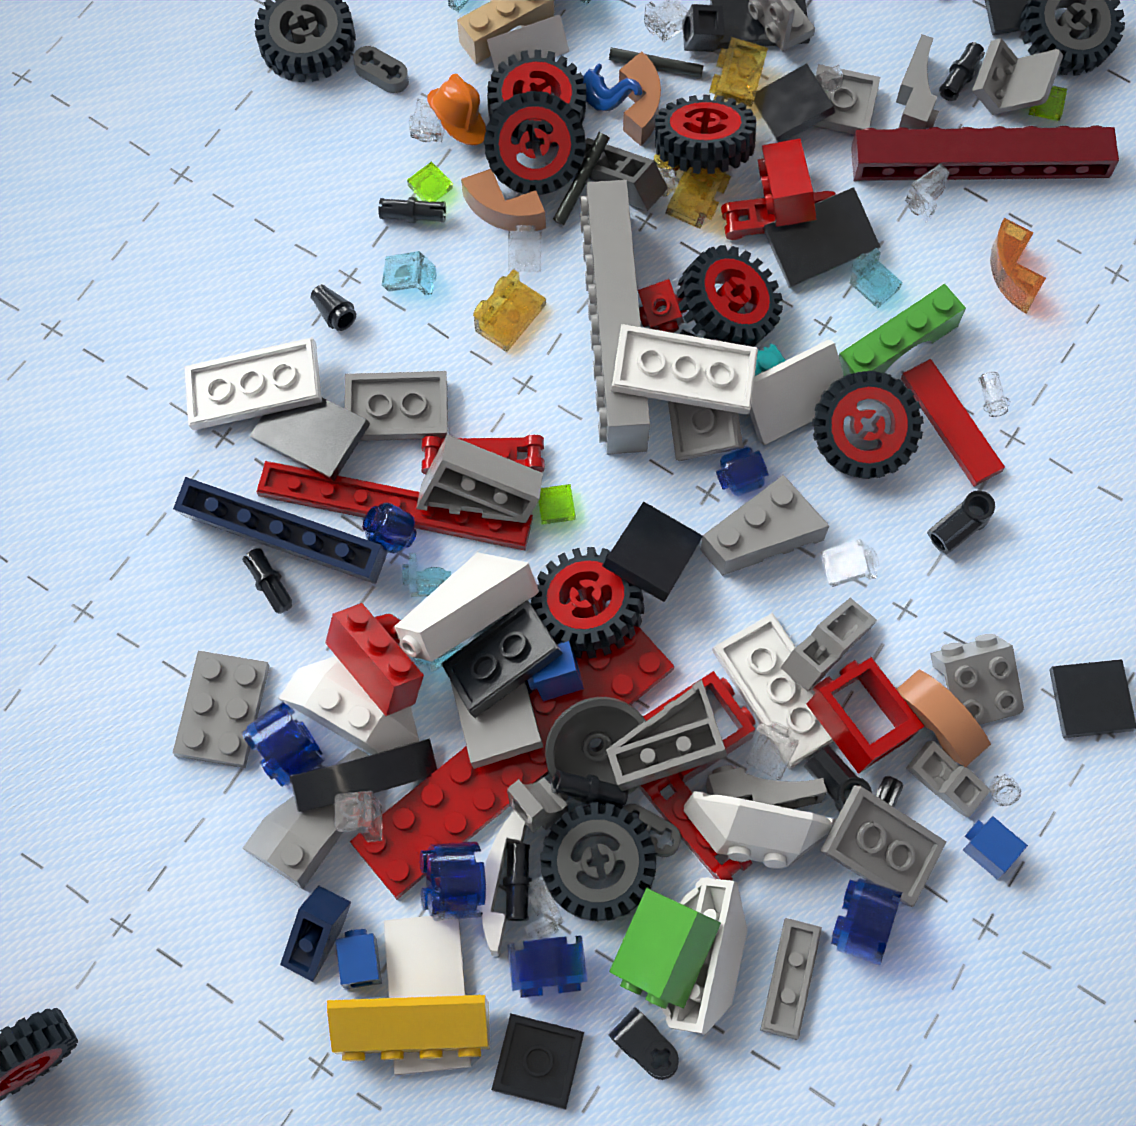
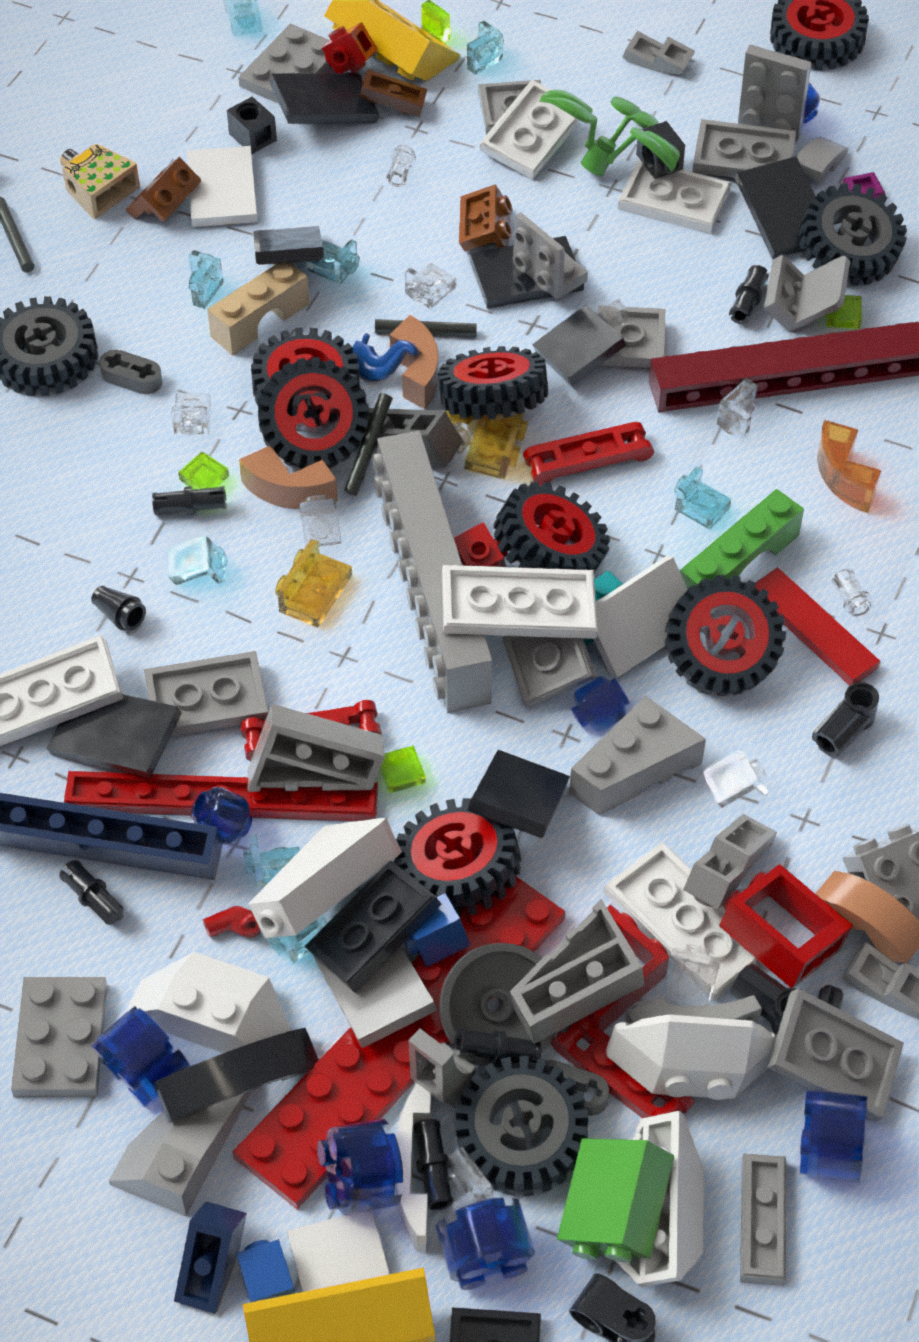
camera: 10 degrees left, 15 degrees down
(359, 812) = (241, 1108): clear bracket -> none
(374, 659) = (229, 947): red brick -> none
(458, 109) = (224, 396): orange piece -> none
(542, 35) = (301, 313): white sticker -> none
(703, 27) = (470, 286): black brick -> none
(740, 71) = (516, 321): clear yellow bracket -> none
(786, 183) = (590, 416): red brick -> none
(820, 245) = (635, 466): black tile -> none
(915, 90) = (704, 316): light grey slope -> none

